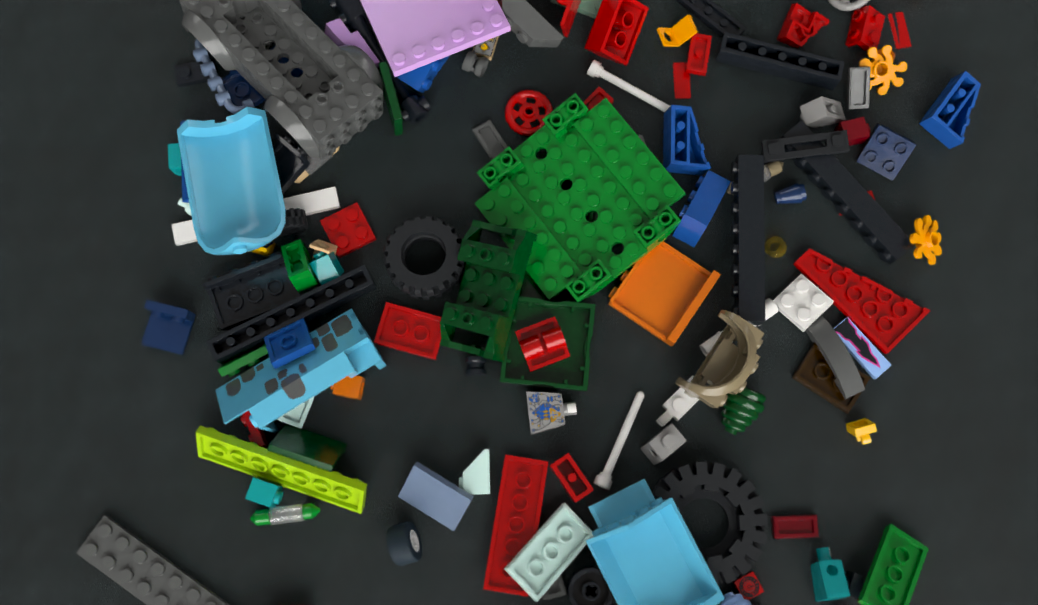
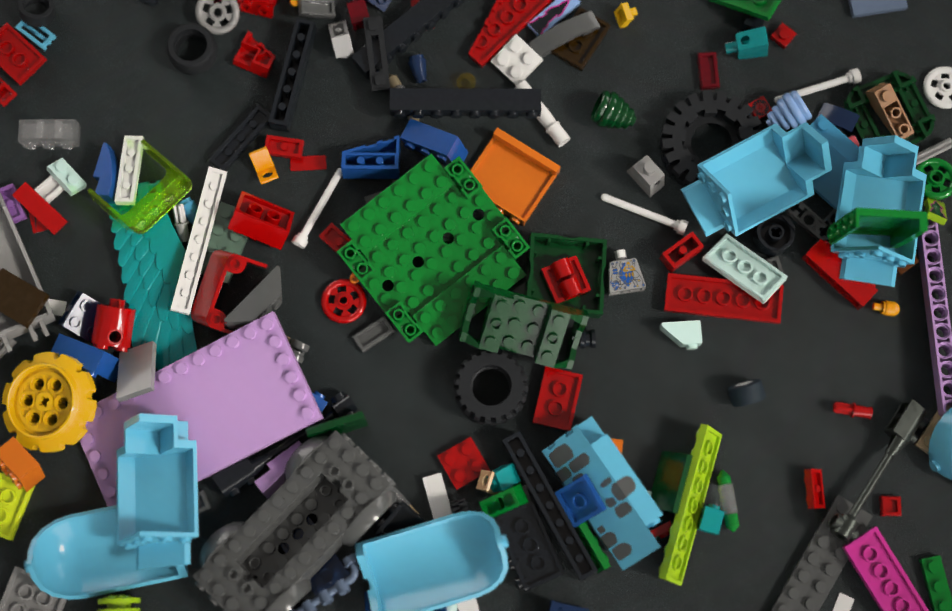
camera: 90 degrees left, 0 degrees up
(435, 496) = (704, 367): sand blue tile -> none
(676, 406) = (608, 162): white plate -> none
(726, 364) = (579, 121): dark tan piece -> none

